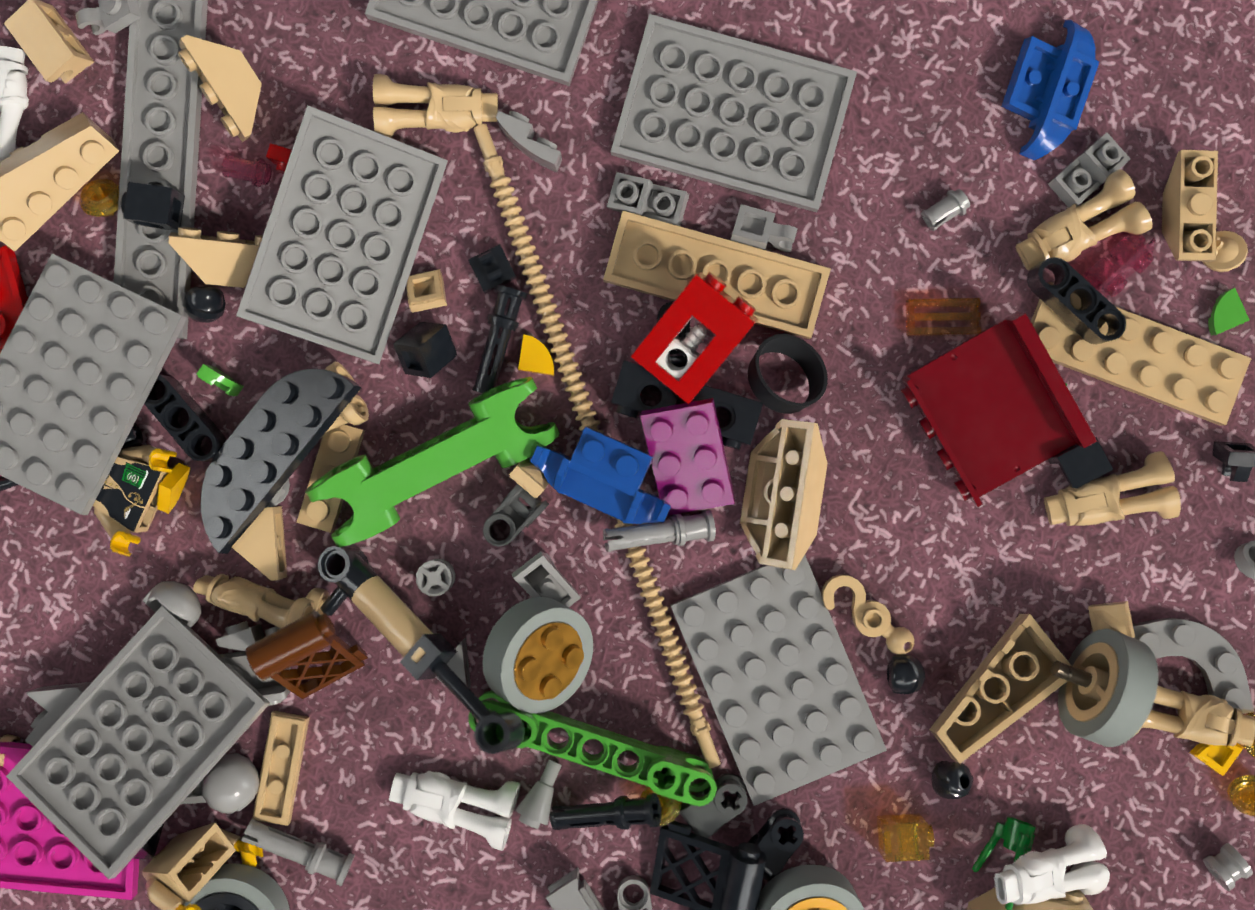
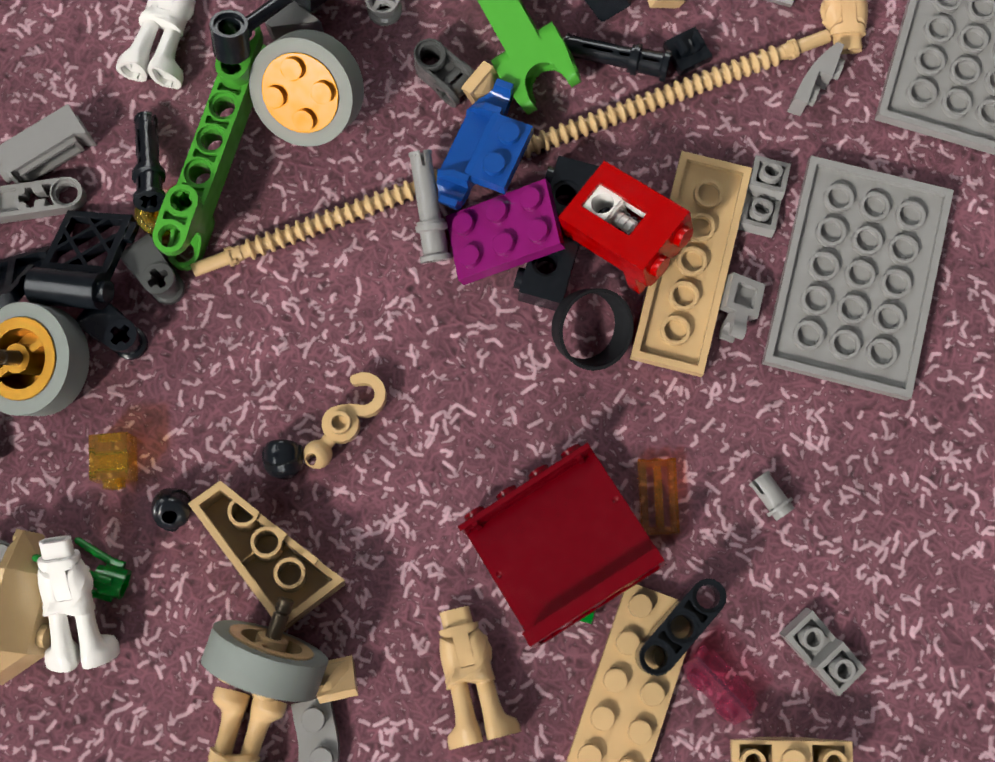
camera: 85 degrees right, 10 degrees down
(535, 357) = (601, 92): yellow tile -> none
(537, 803) = (160, 101): light grey cone -> none
(542, 579) = (383, 95): light grey slope -> none
(778, 679) = (280, 333): light grey plate -> none
(784, 493) = (468, 332): tan wedge -> none
(1052, 87) = (911, 607): blue plate -> none
(1067, 235) = (750, 624): tan piece -> none
(1082, 464) = (505, 641): black panel -> none

